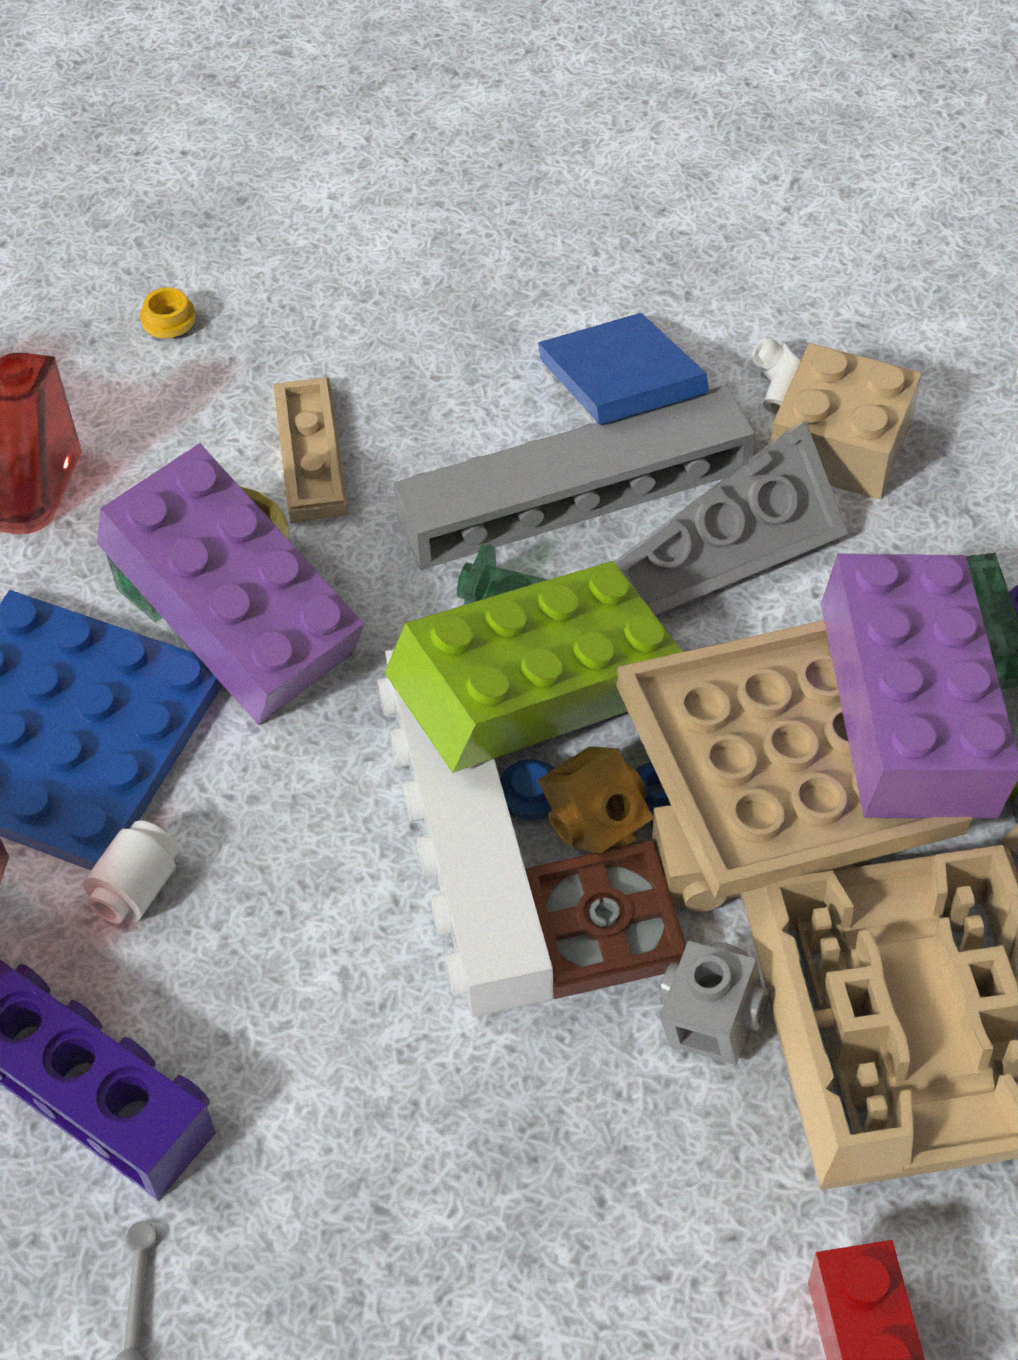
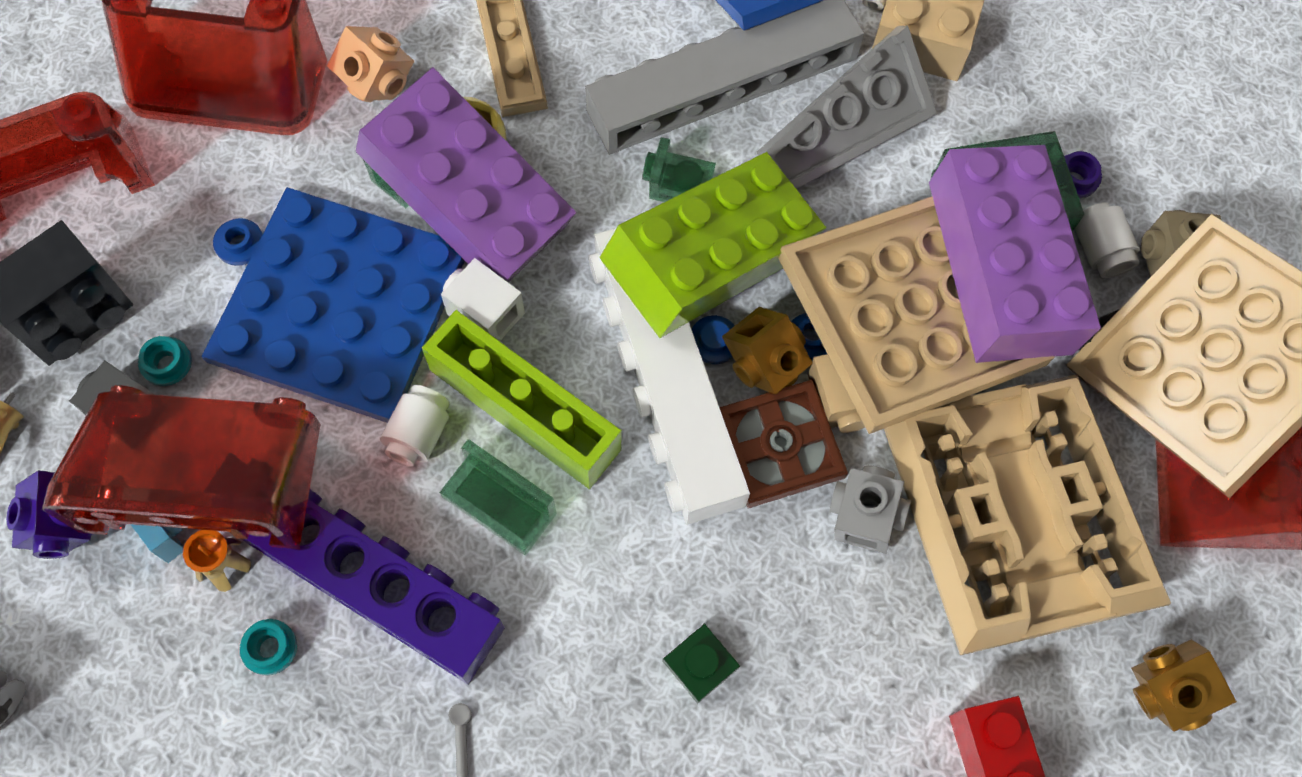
camera: 10 degrees left, 15 degrees up
(128, 447) = (370, 63): none -> light nougat brick
(229, 965) = (499, 498): none -> clear green panel
(235, 729) = (483, 299): none -> white brick
(273, 844) = (523, 399): none -> lime brick
(471, 1190) = (701, 663): none -> dark green plate

